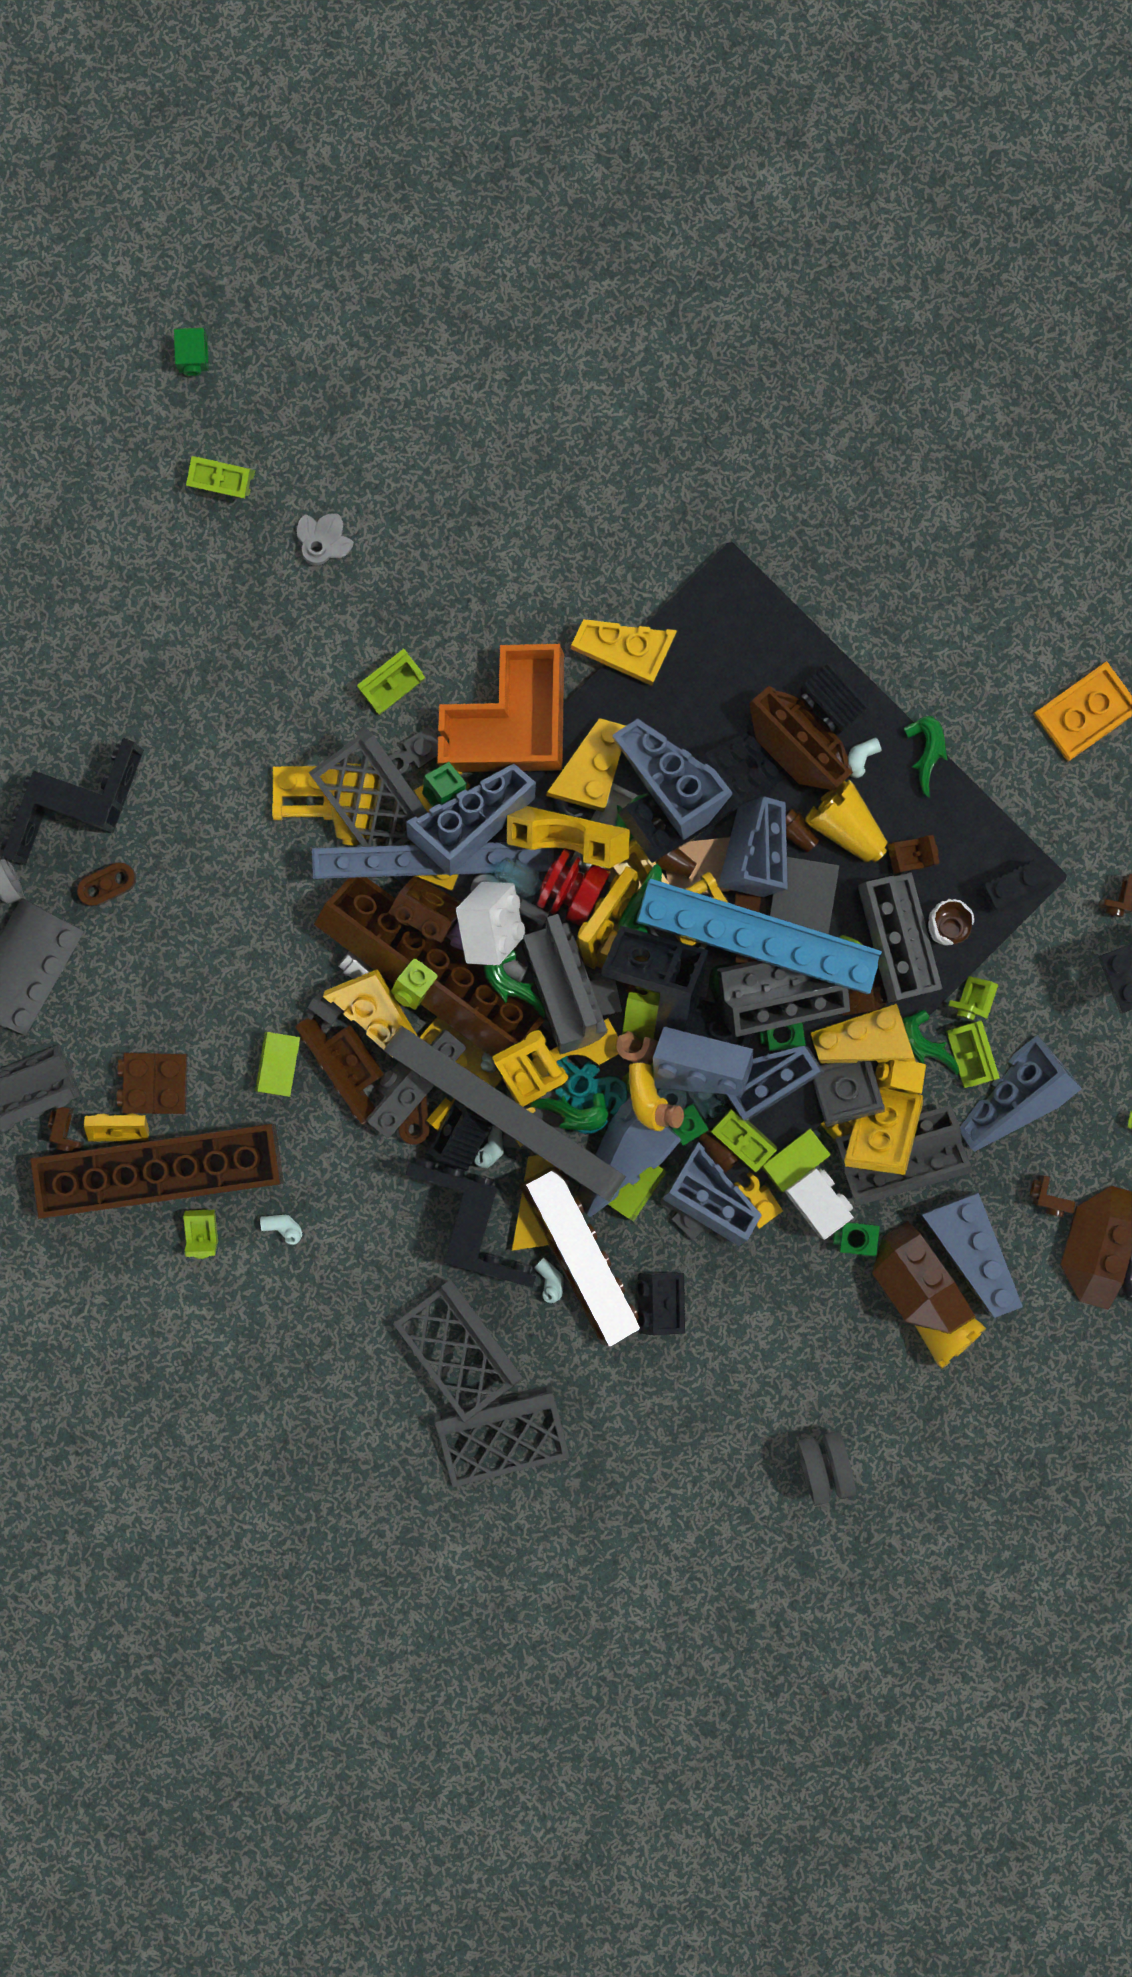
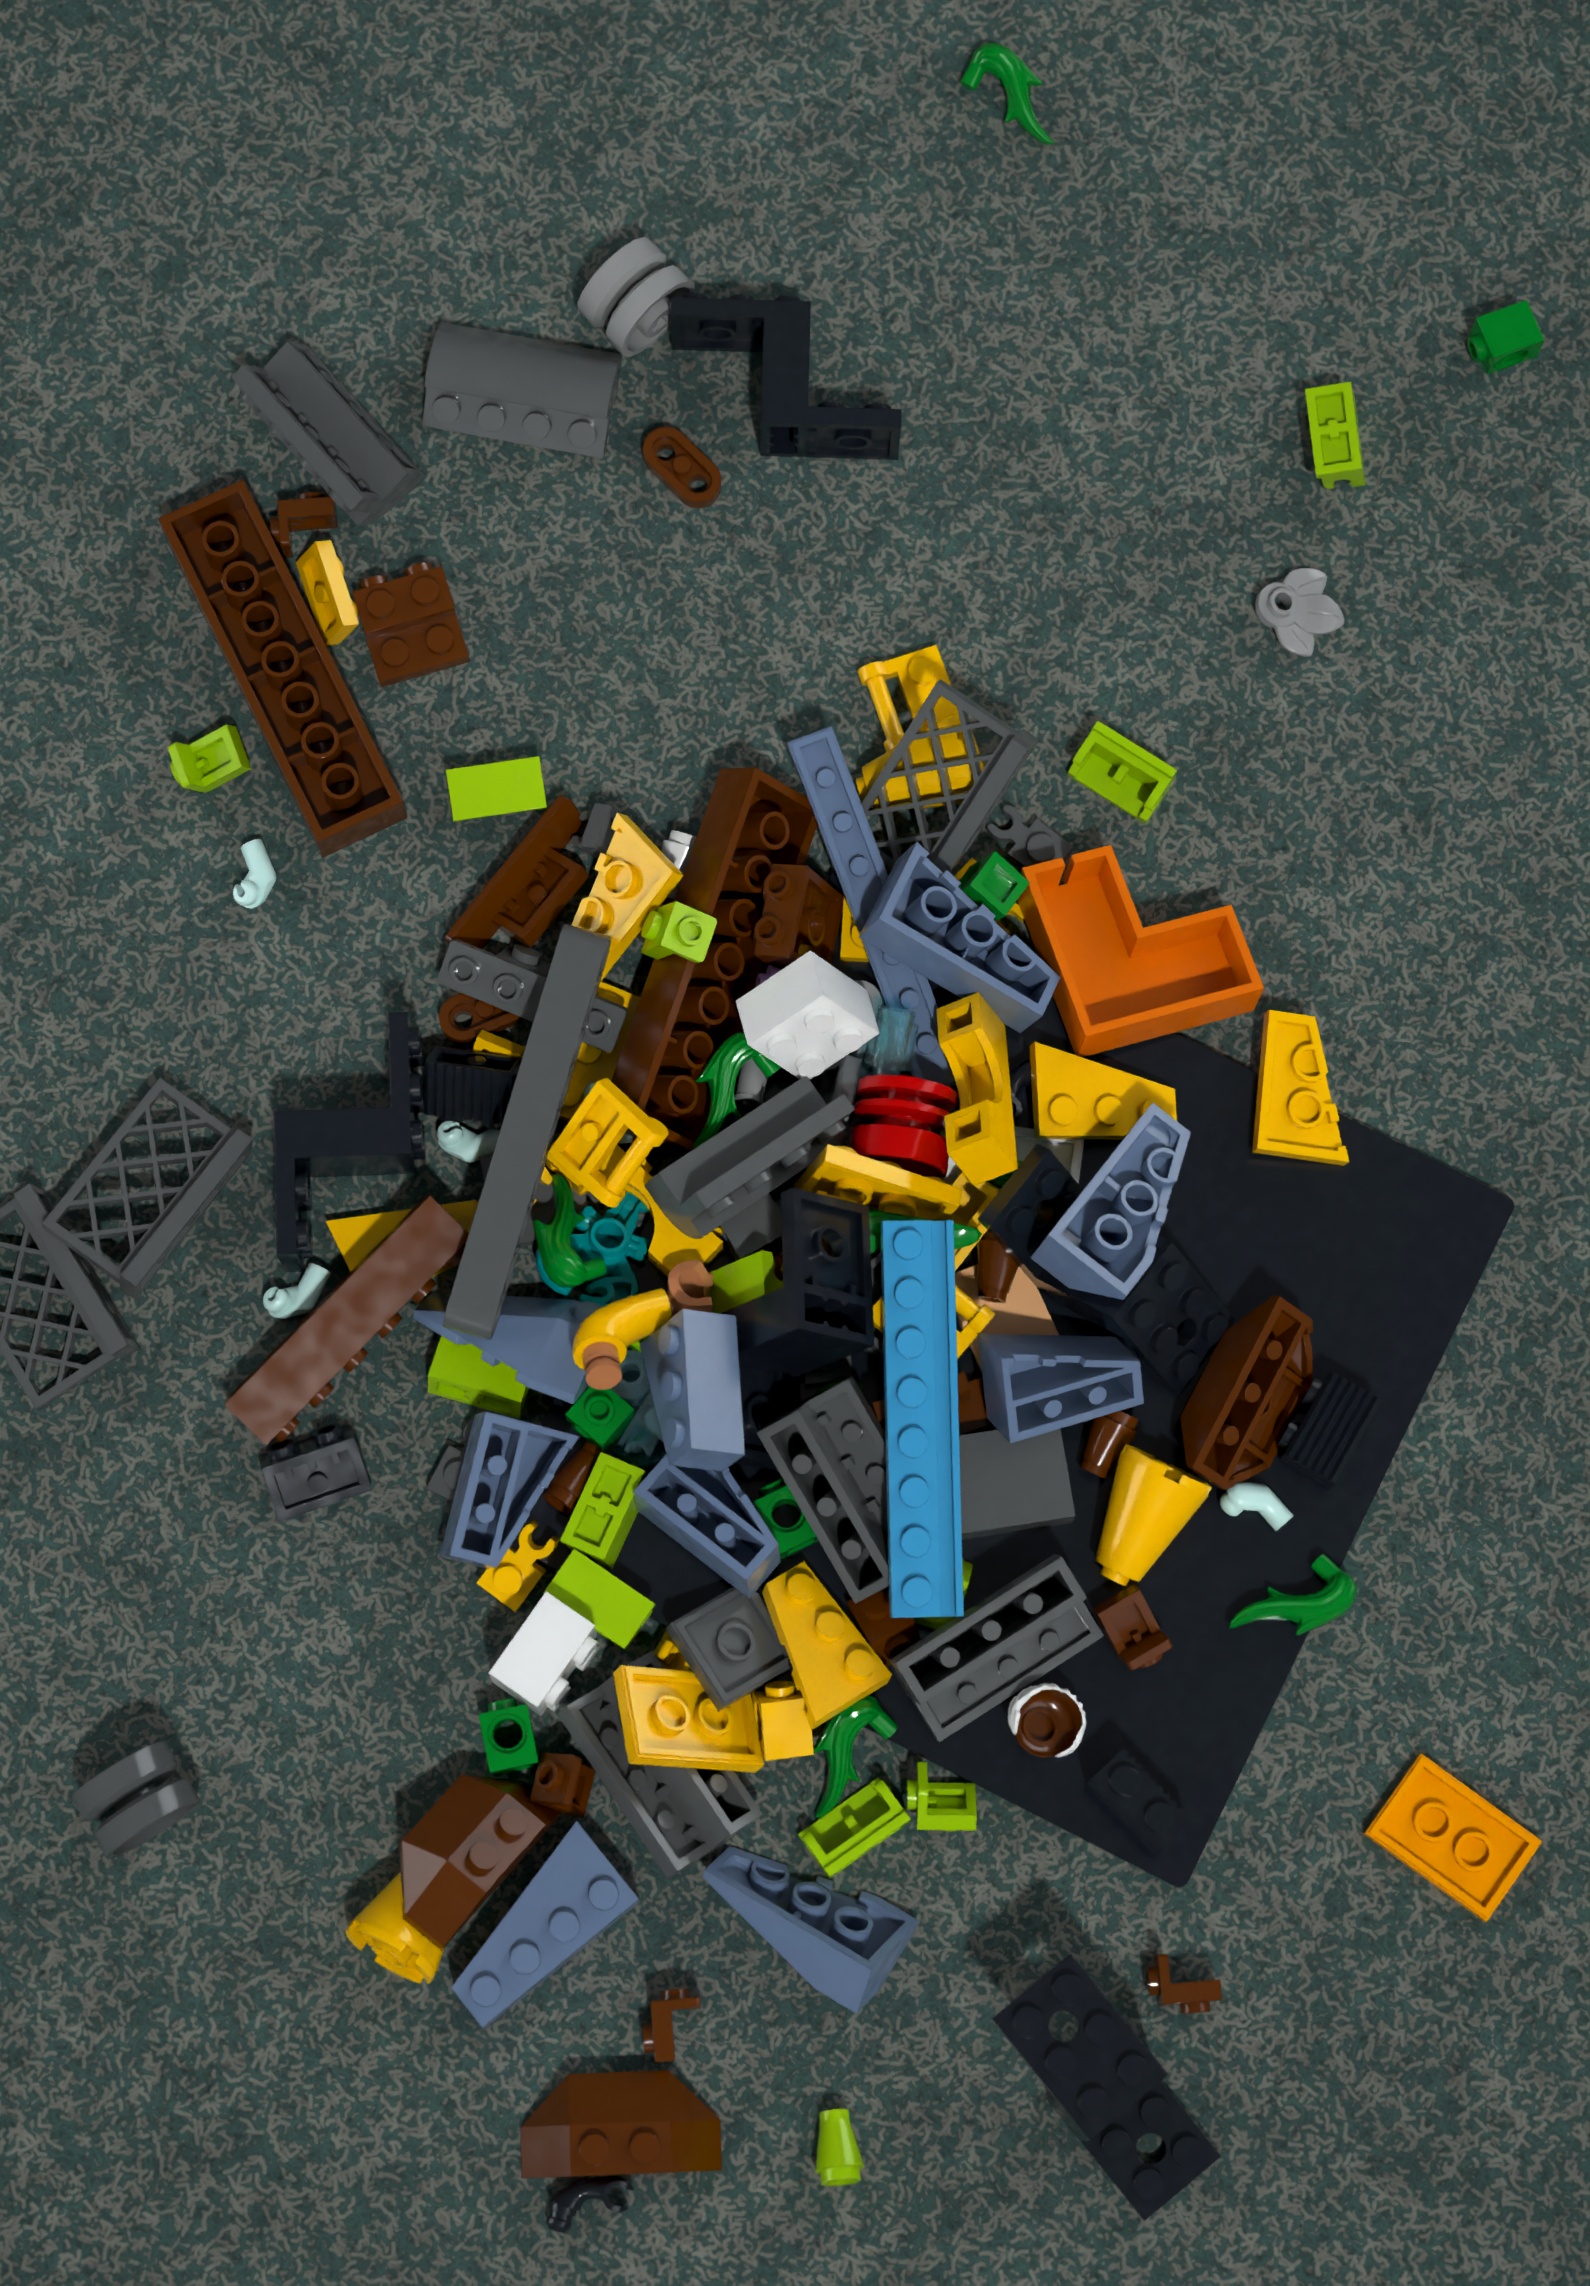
camera: 70 degrees right, 10 degrees down
(895, 1216) = (562, 1784): none -> reddish brown bracket

